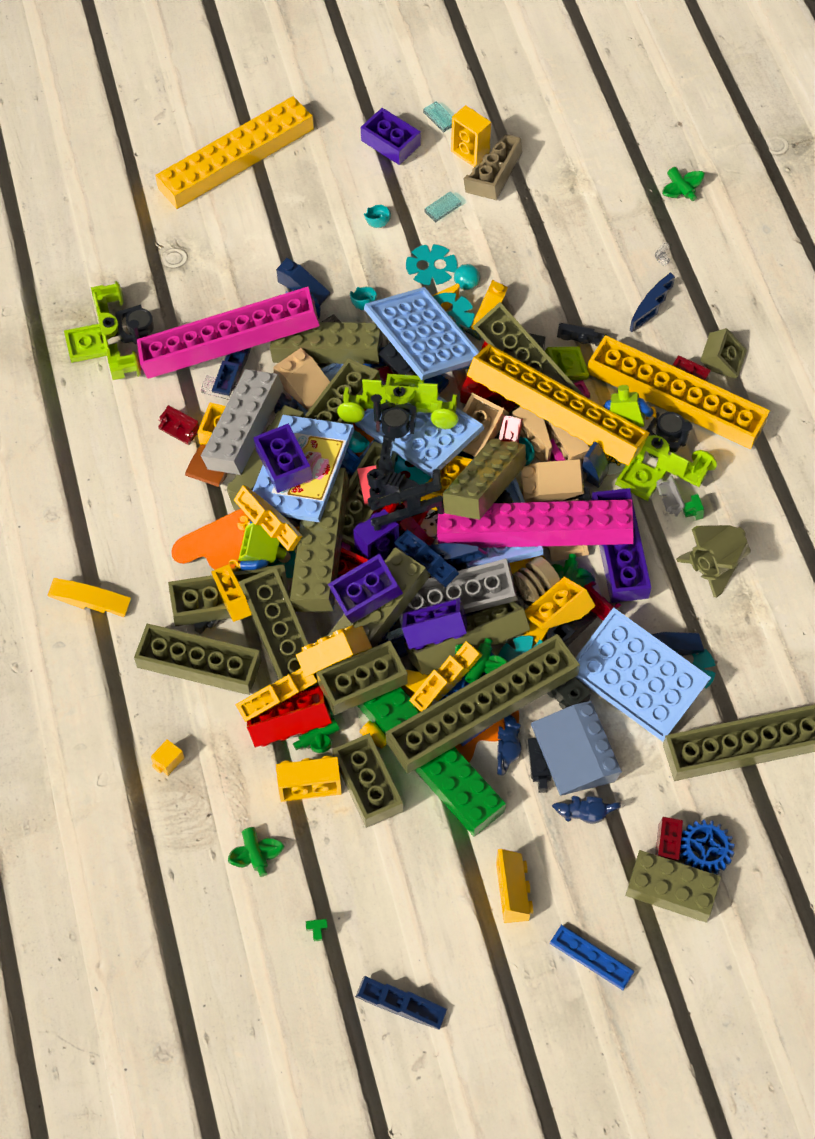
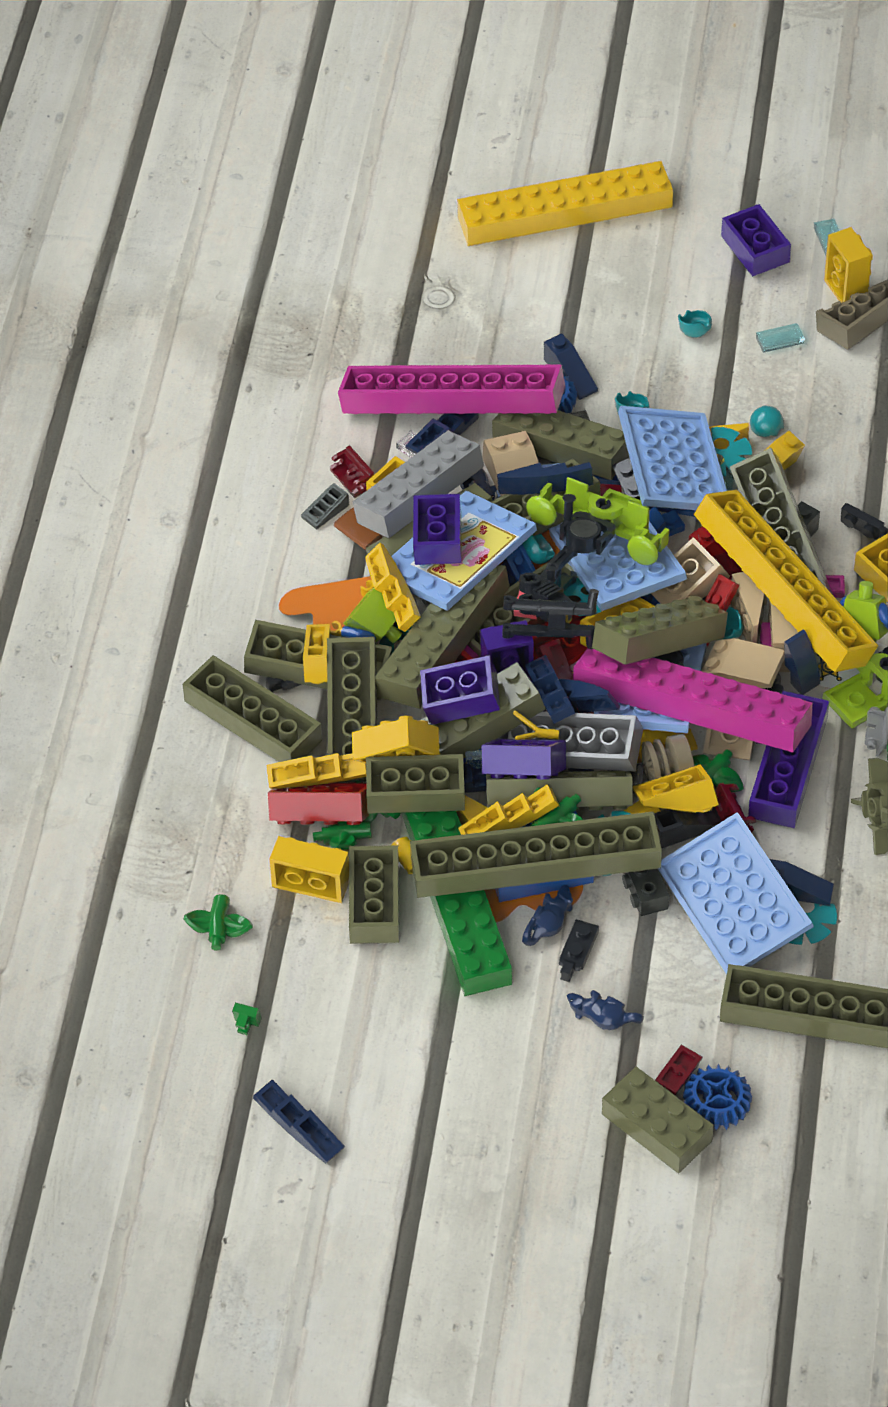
camera: 25 degrees right, 10 degrees down
(85, 341) = (299, 354): lime piece -> none
(88, 596) = (168, 612): yellow slope -> none
(167, 757) = (170, 798): yellow brick -> none
(175, 450) = (334, 495): none -> pearl dark grey slope
(333, 387) = (534, 477): none -> dark blue slope
(425, 276) = (731, 382): teal piece -> none
(435, 598) = (539, 732): none -> yellow plant
(513, 886) = (477, 1053): yellow slope -> none
(569, 361) = (834, 549): lime plate -> none
(576, 749) = (622, 946): sand blue slope -> none
(592, 957) = (530, 1158): blue tile -> none

